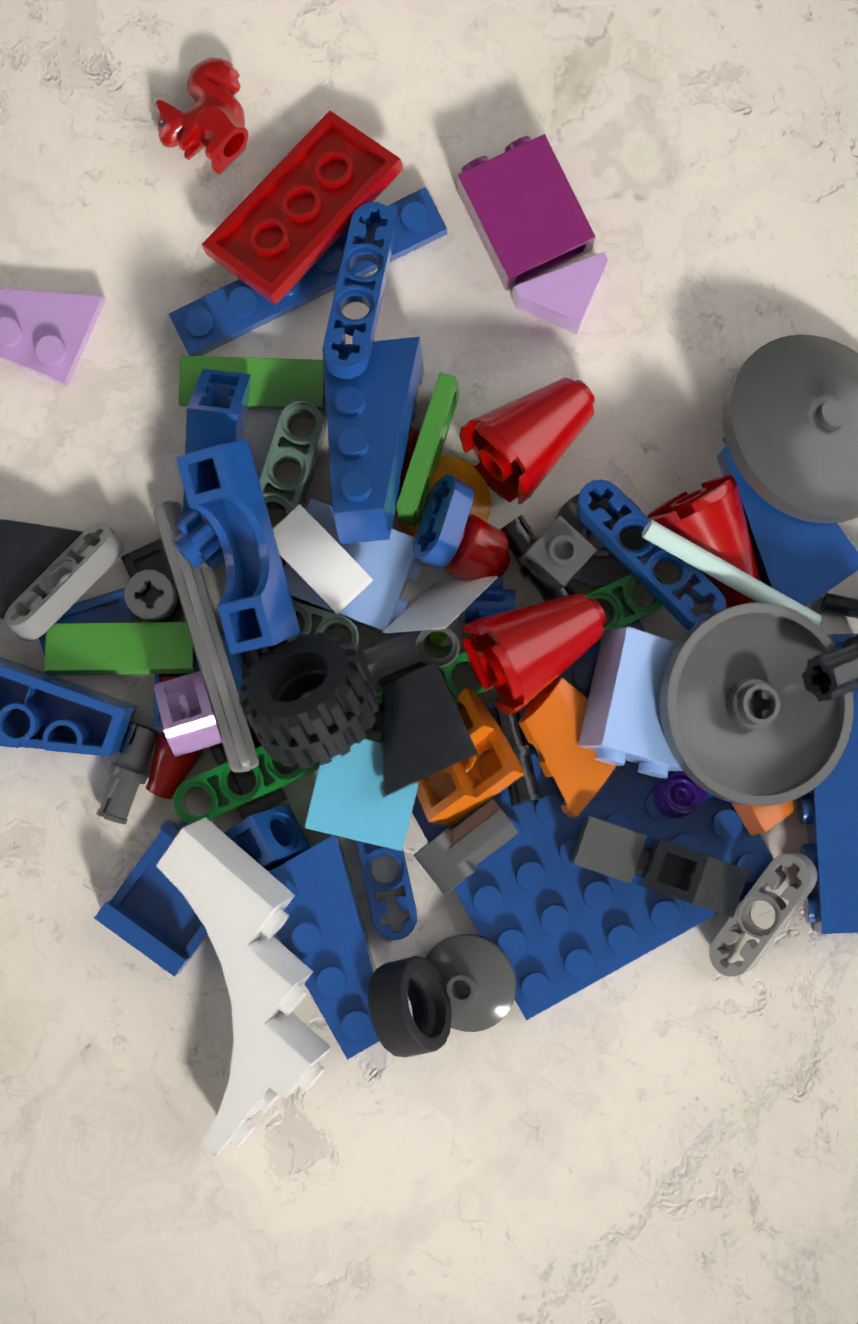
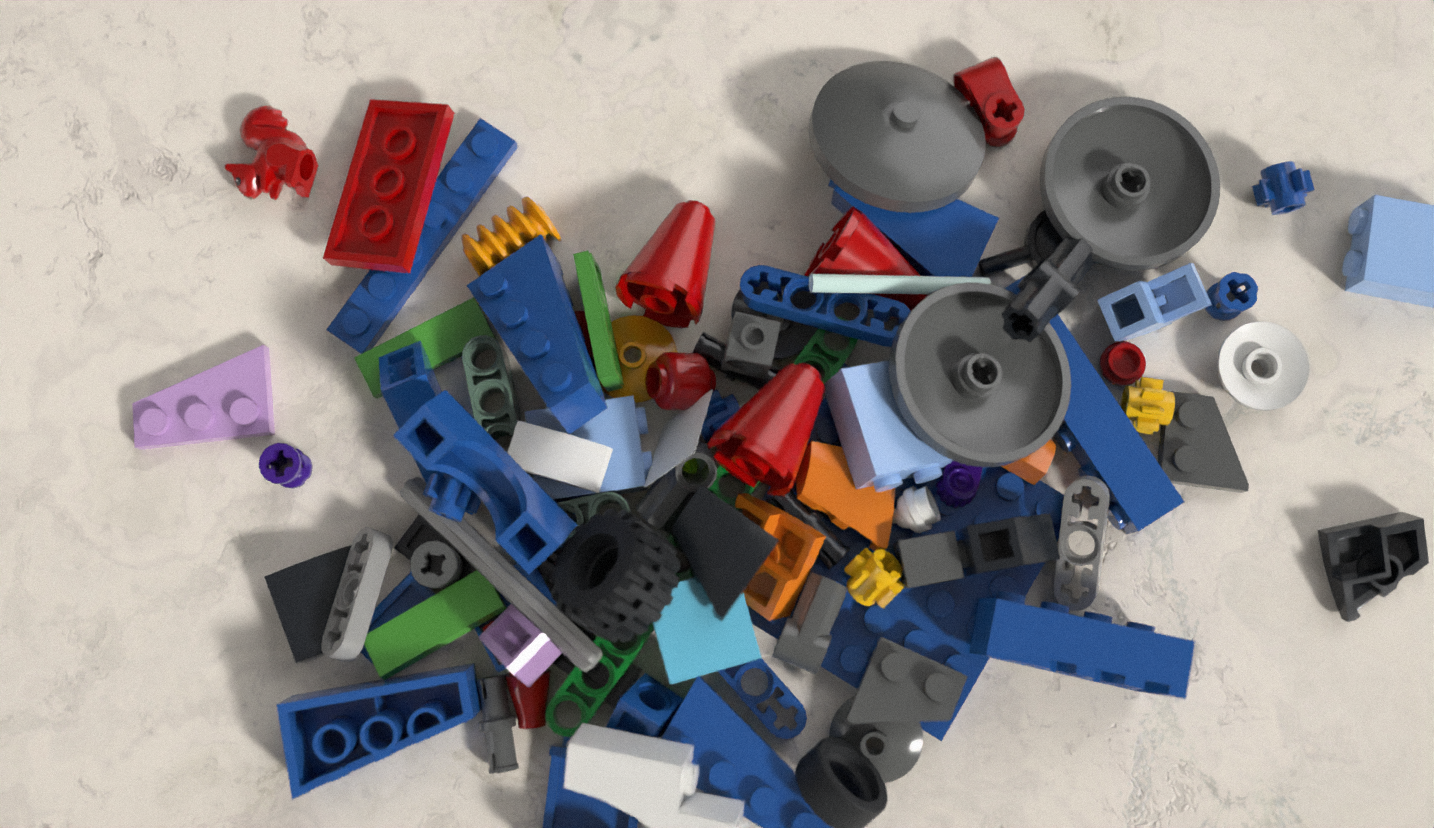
camera: 30 degrees left, 5 degrees down
(61, 409) = (278, 455): none -> dark purple bush
(359, 289) = (472, 222): blue beam -> none
(400, 320) = (507, 236): none -> light orange piece
(443, 521) = (643, 370): blue beam -> none
(518, 953) = (904, 688): none -> dark grey wing
(524, 210) = (570, 93): magenta brick -> none
(548, 836) = (874, 577): none -> yellow gear
(562, 294) = (636, 142): lavender slope -> none
(625, 796) = (916, 510): none -> white plate
(704, 1008) = (1082, 646): none -> blue wedge

